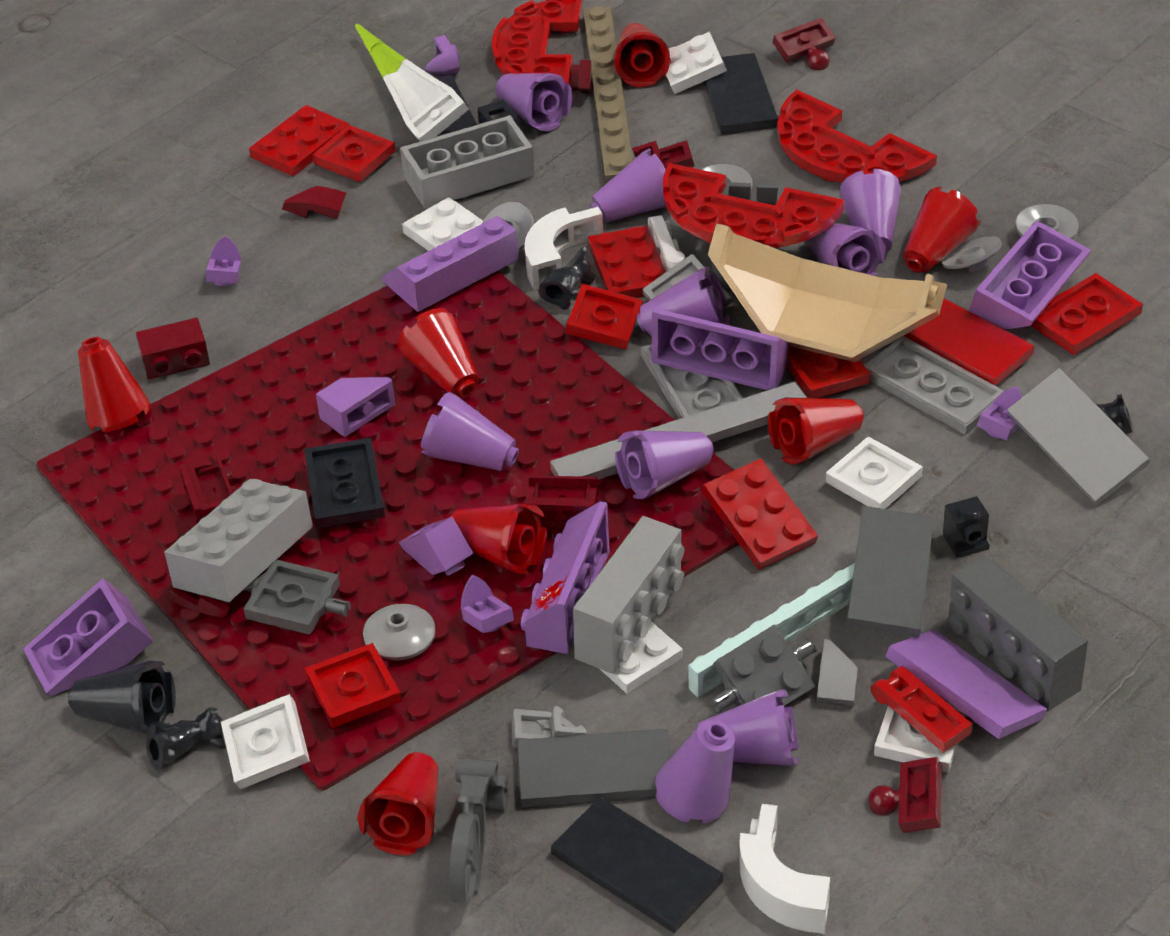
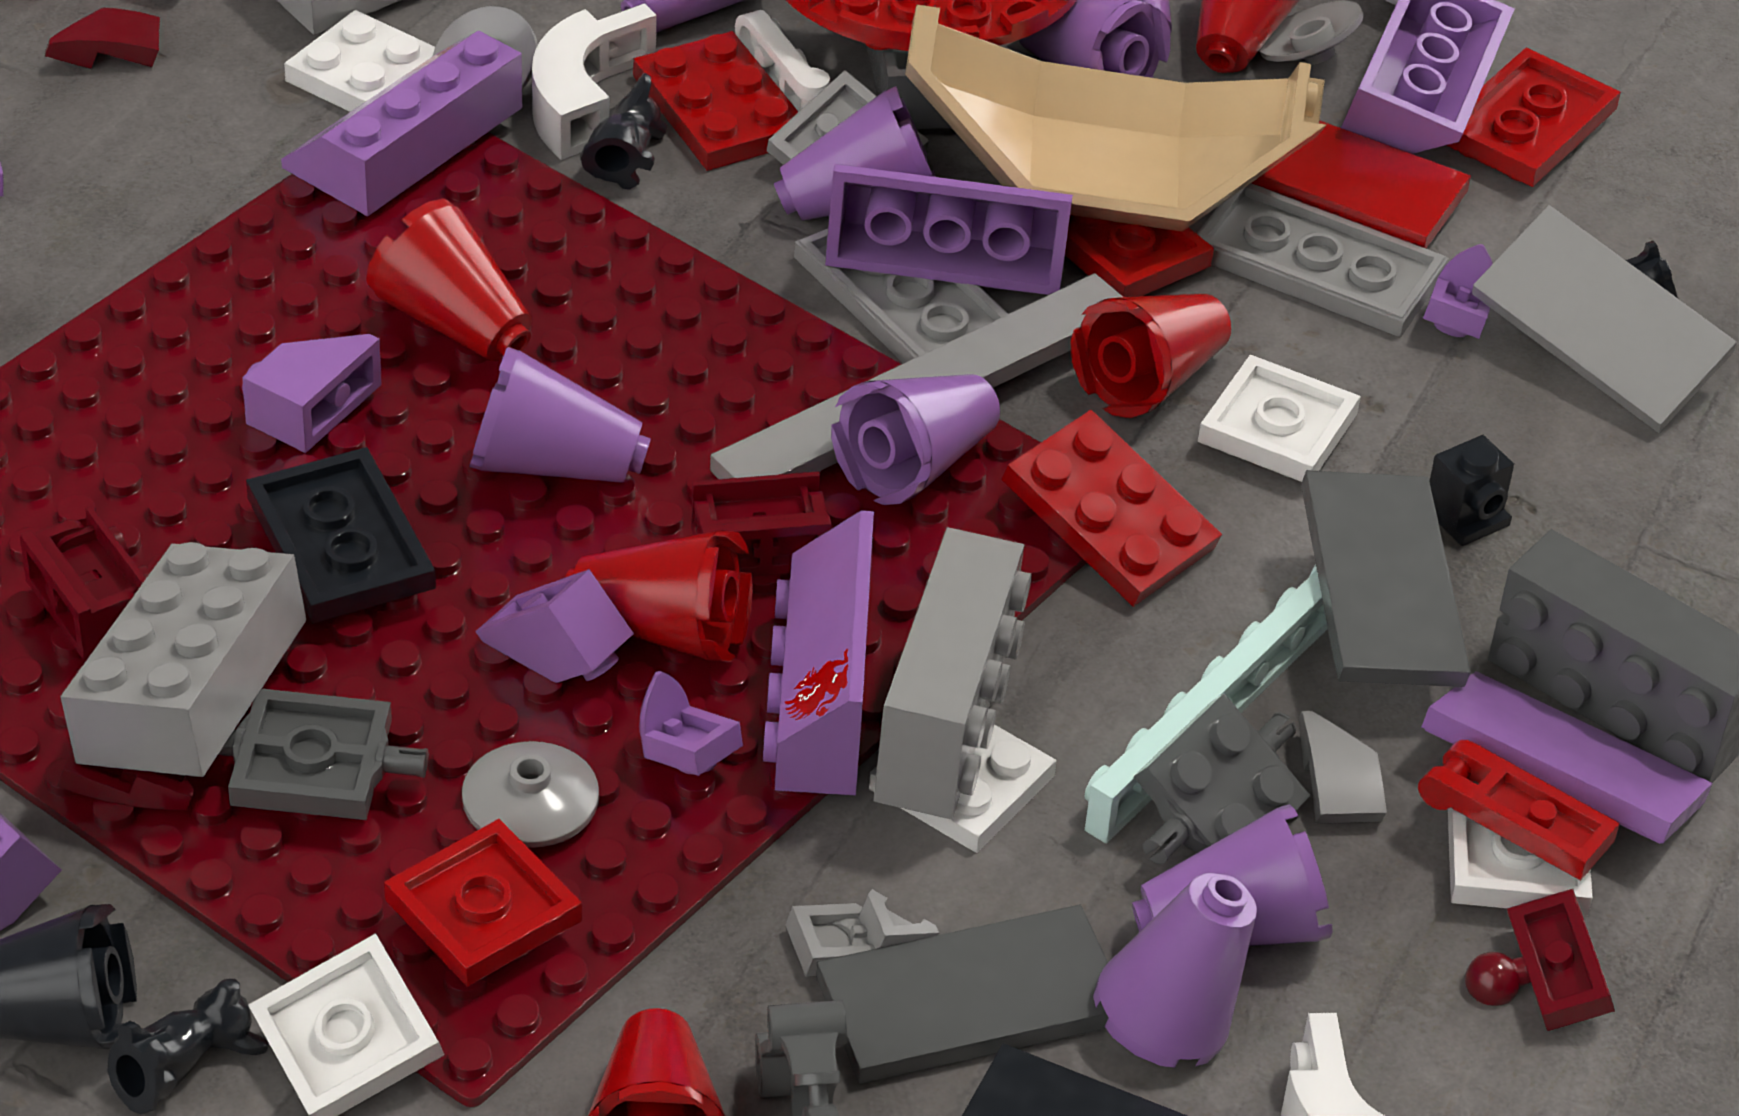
camera: 20 degrees left, 0 degrees up
(603, 316) = (714, 194): red plate -> none

